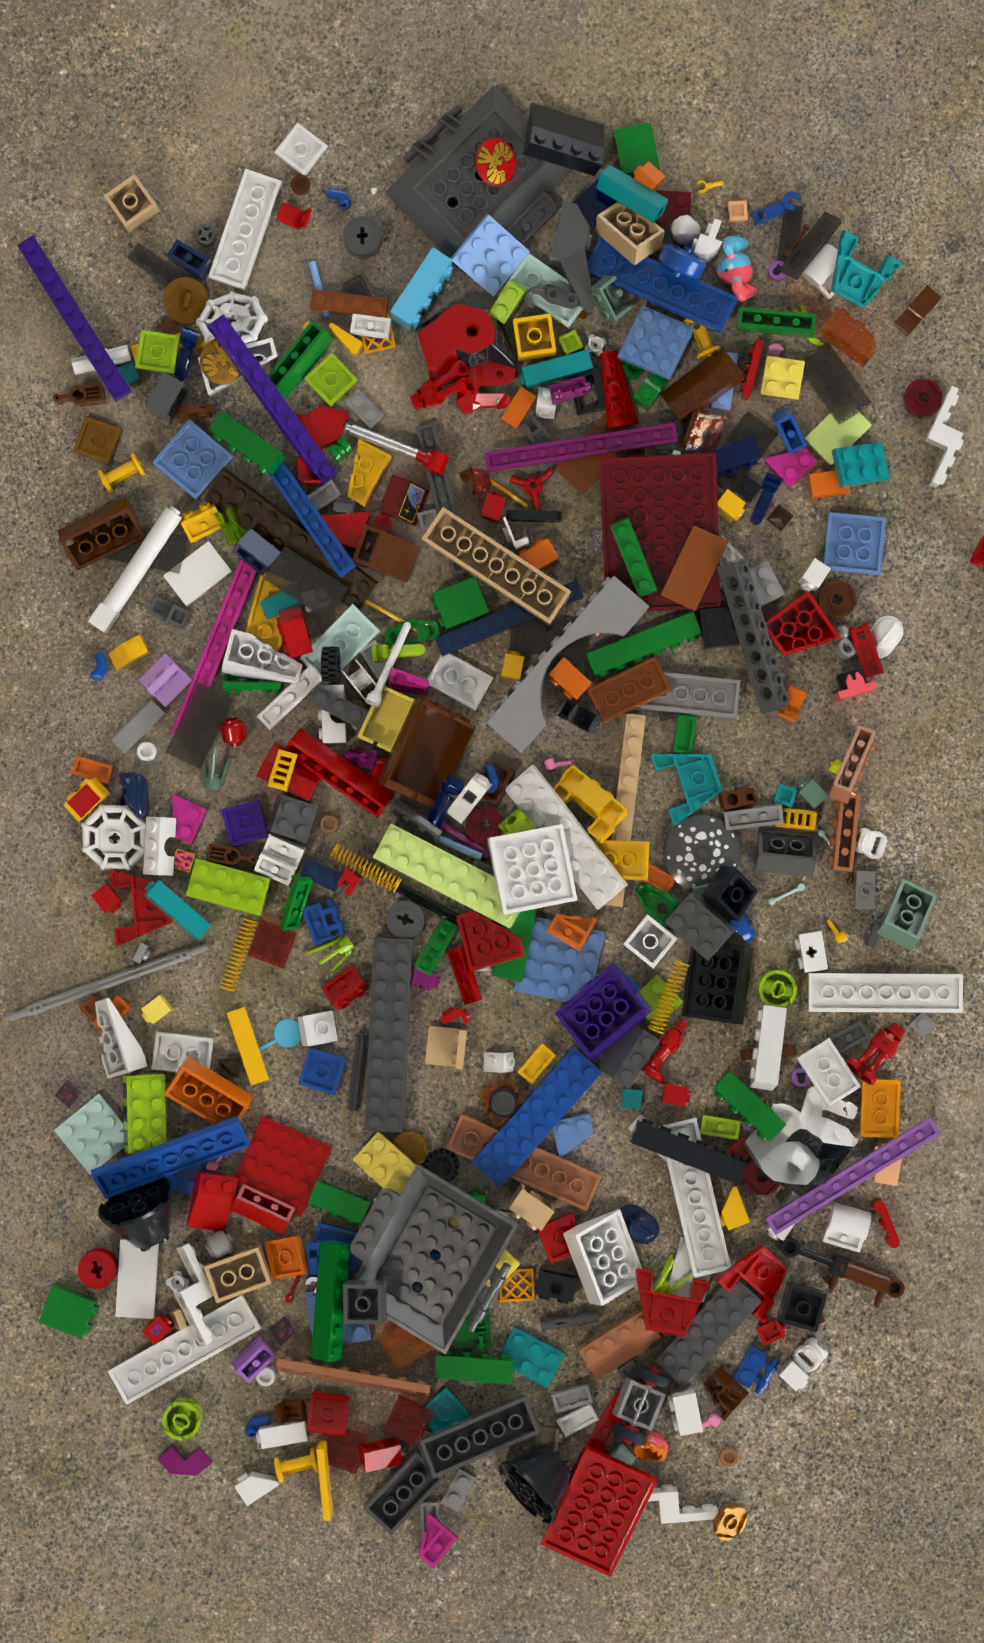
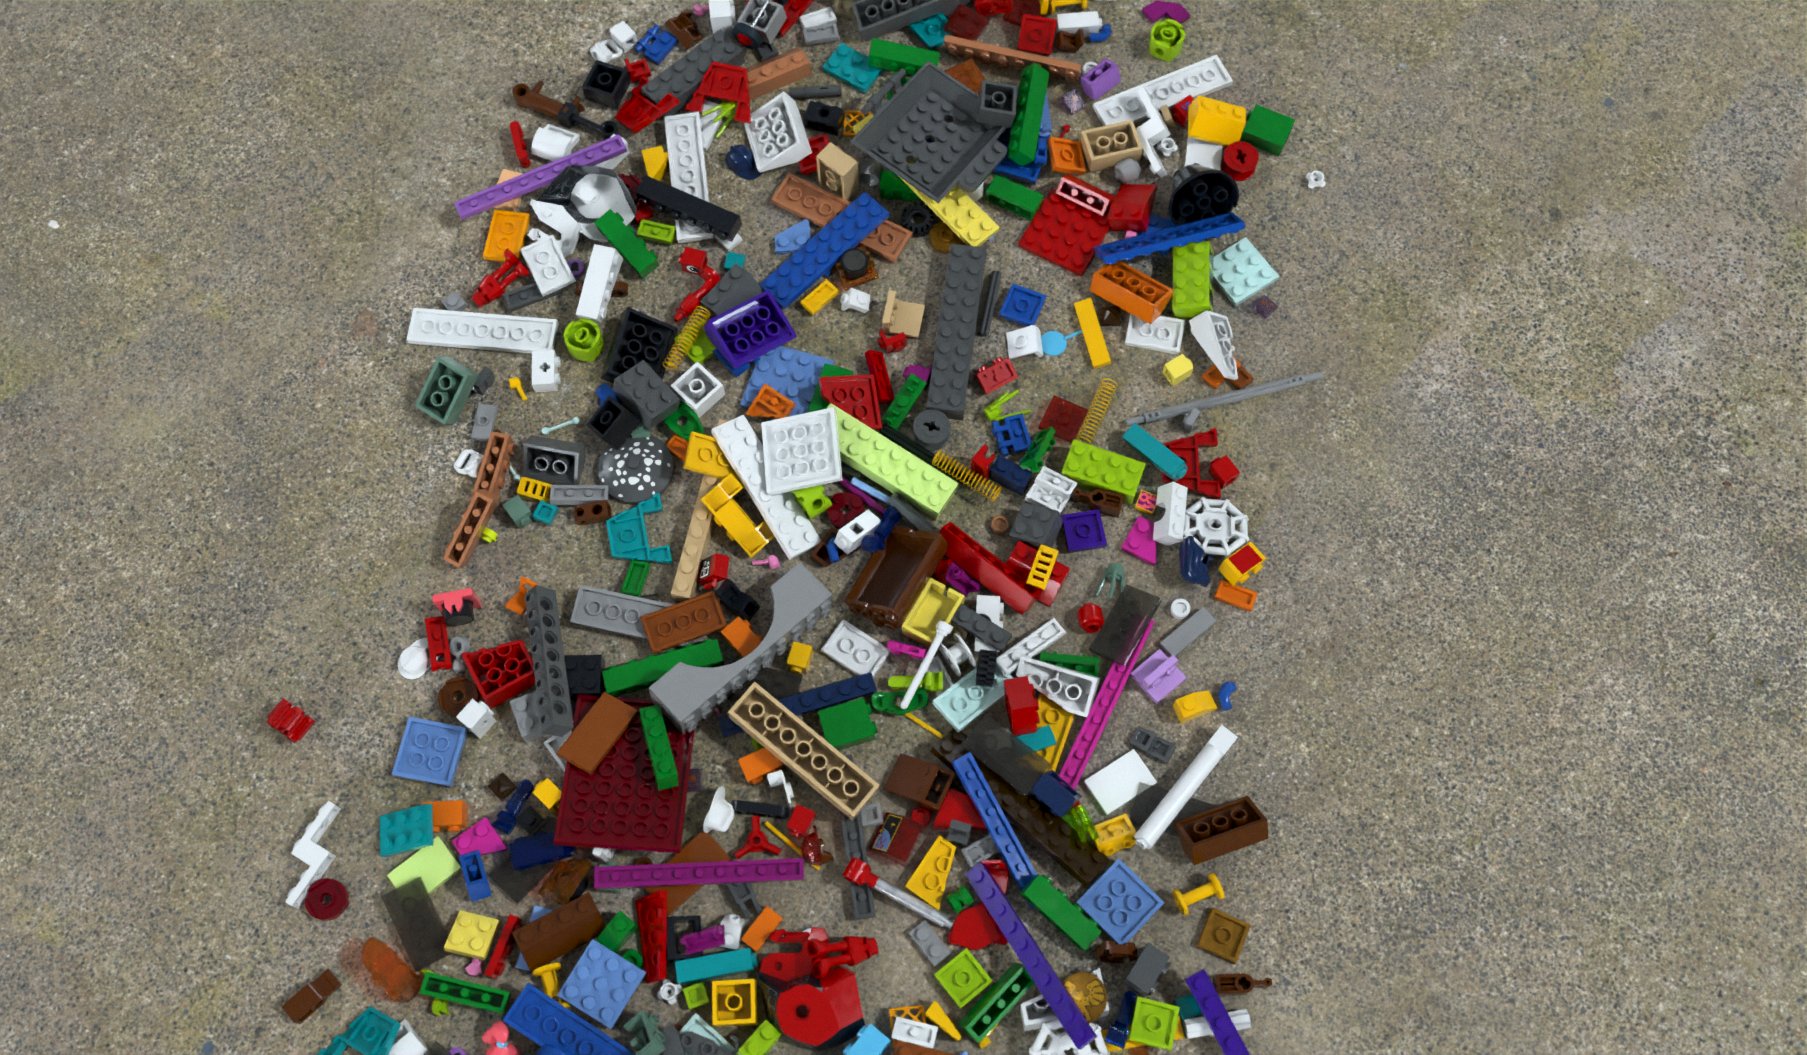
camera: 170 degrees left, 20 degrees down
(15, 1258) = (1315, 175): none -> white plate
(125, 1309) = (1215, 121): none -> yellow slope
(568, 505) = (720, 813): none -> white piece
(607, 744) = (713, 570): none -> red piece

